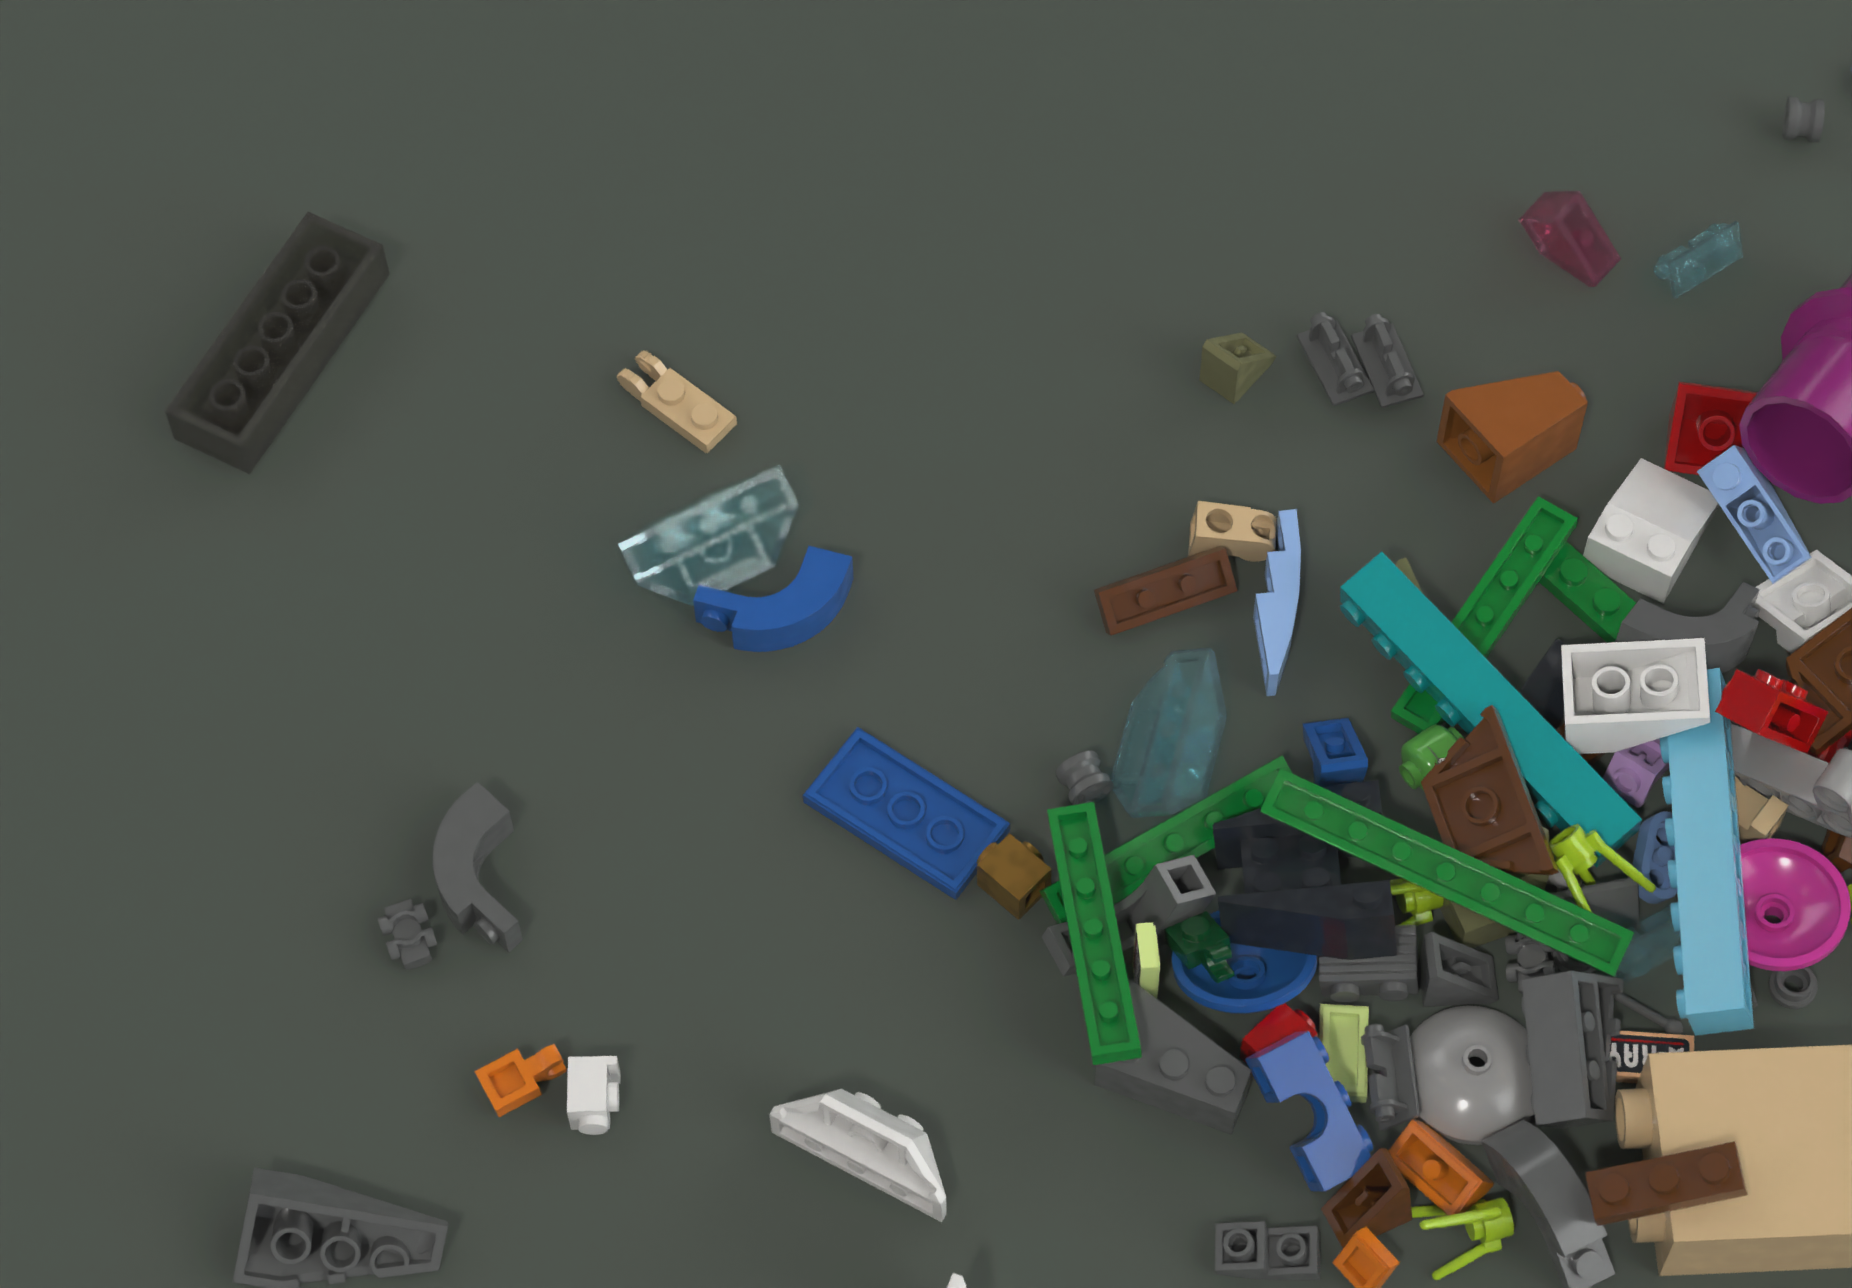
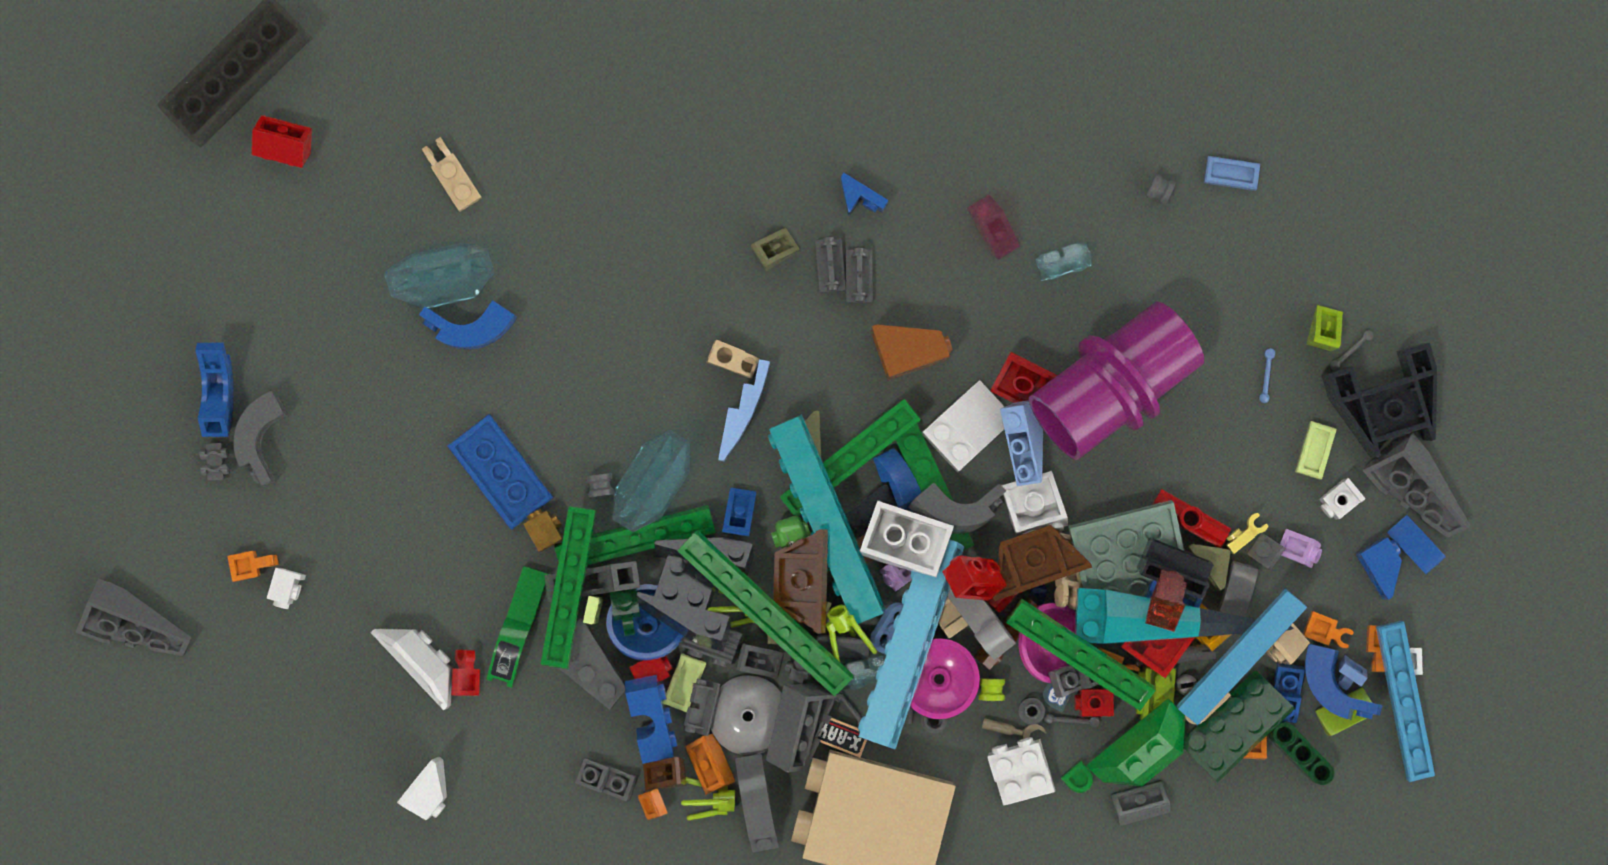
camera: 20 degrees right, 25 degrees up
(377, 804) = (217, 390): none -> blue arch
(385, 420) = (281, 141): none -> red brick
(957, 1149) = (466, 678): none -> red plate
(1020, 1044) = (517, 626): none -> green piece
(1165, 590) = (683, 384): reddish brown plate -> none
(1336, 245) = (854, 191): none -> blue slope
(1558, 616) = (894, 469): none -> blue slope
(1666, 1183) = (809, 828): reddish brown plate -> none

